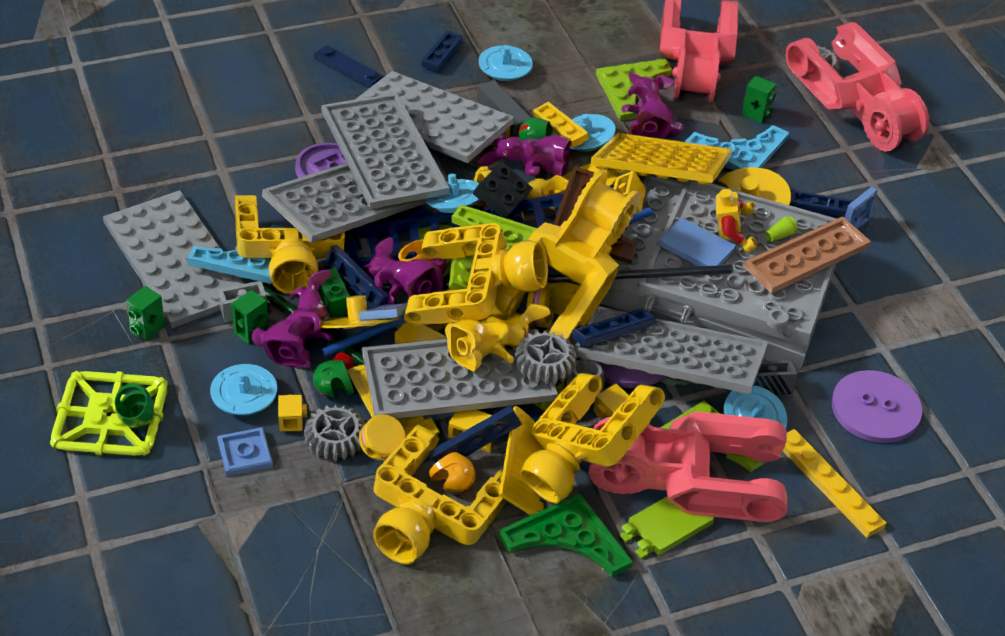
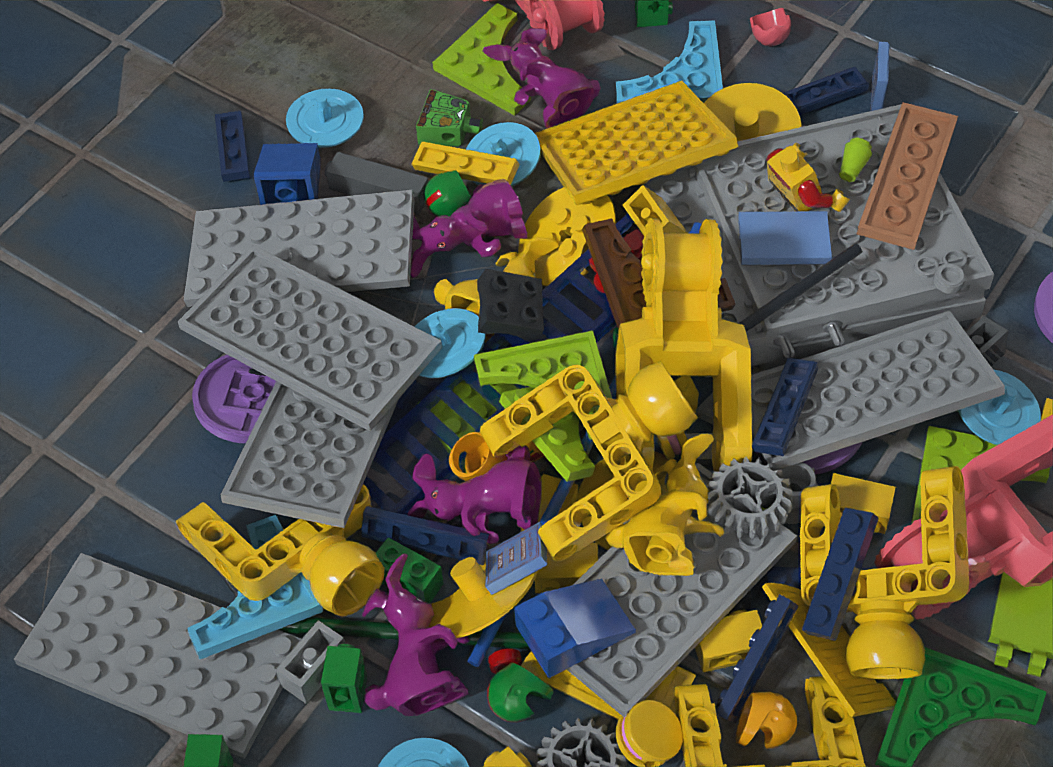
camera: 30 degrees left, 10 degrees up
(347, 66) = (134, 237): dark blue plate -> none
(386, 355) = (571, 624): none -> blue slope
(457, 76) = (288, 173): none -> blue slope
(557, 419) = (840, 574): none -> dark blue plate
(573, 99) = (446, 120): none -> bright green torso
(821, 154) = (771, 27): none -> coral hair

